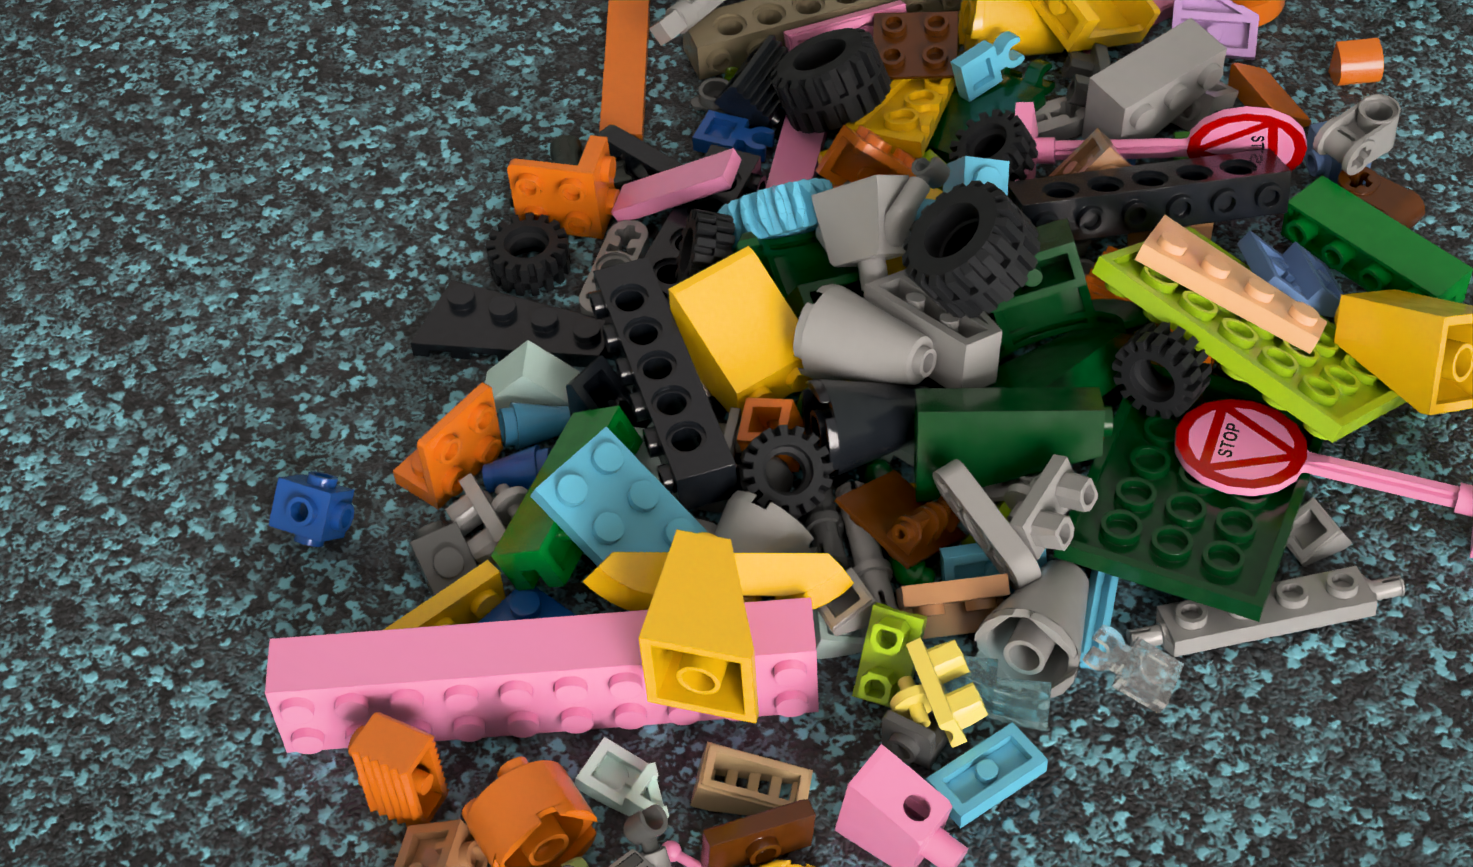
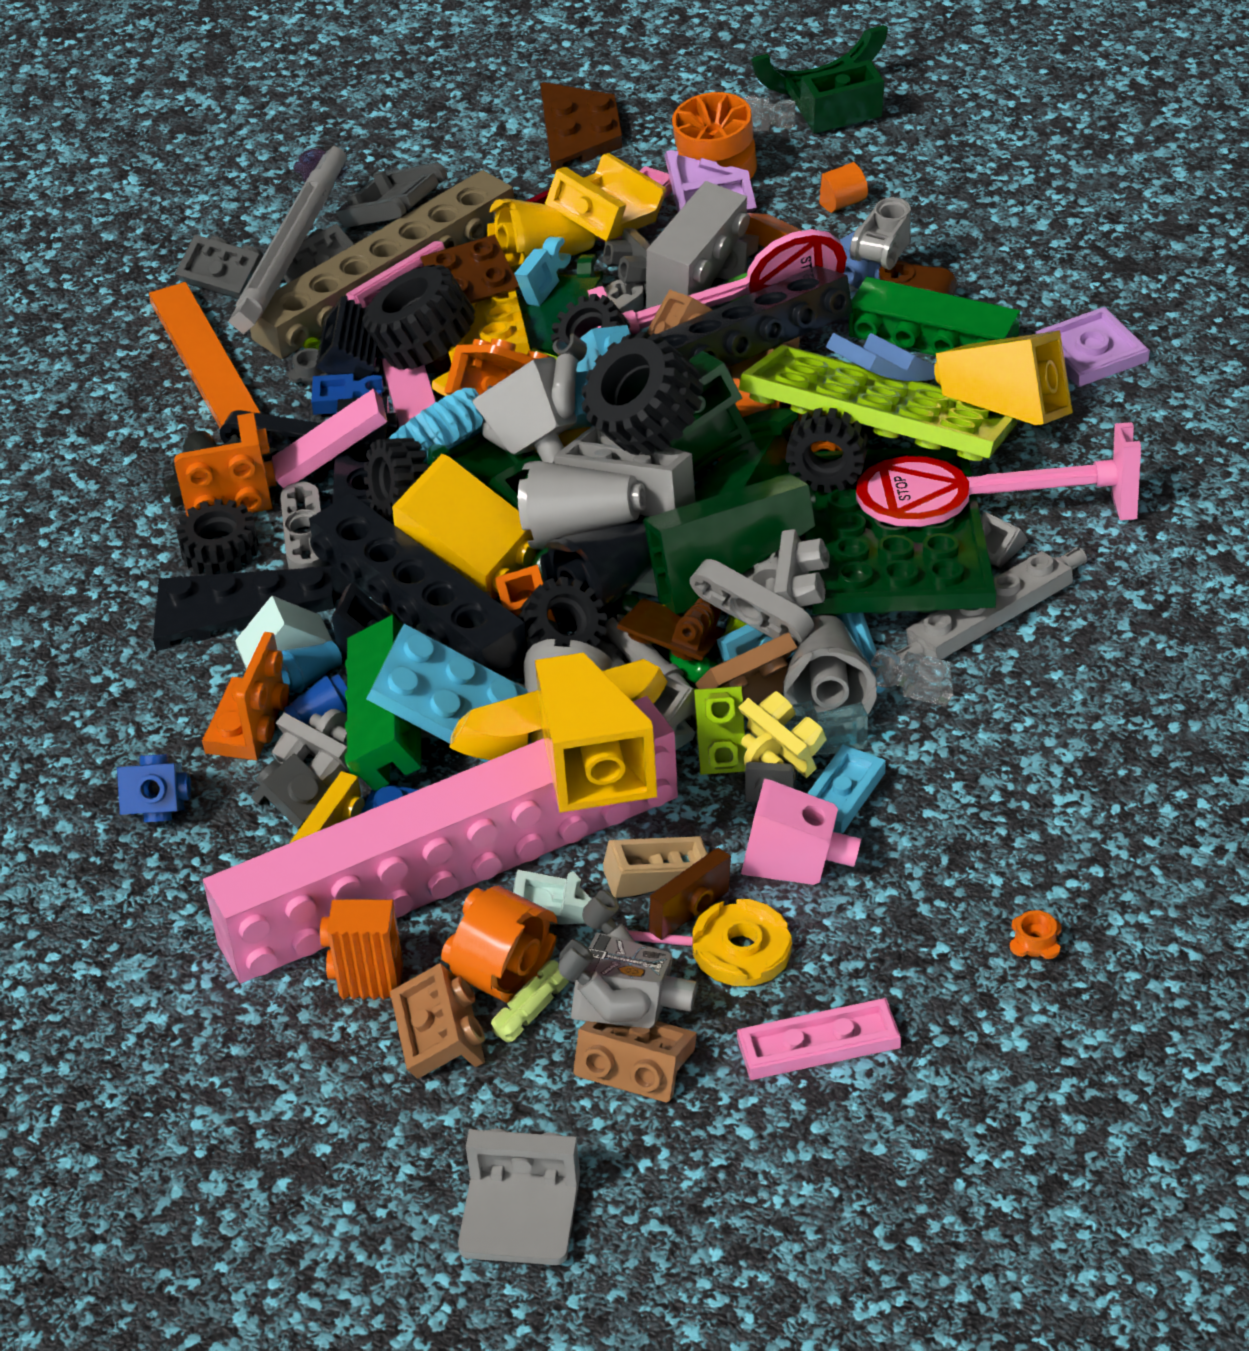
camera: 25 degrees left, 5 degrees down
(1217, 277) = (846, 371): light nougat wing -> none

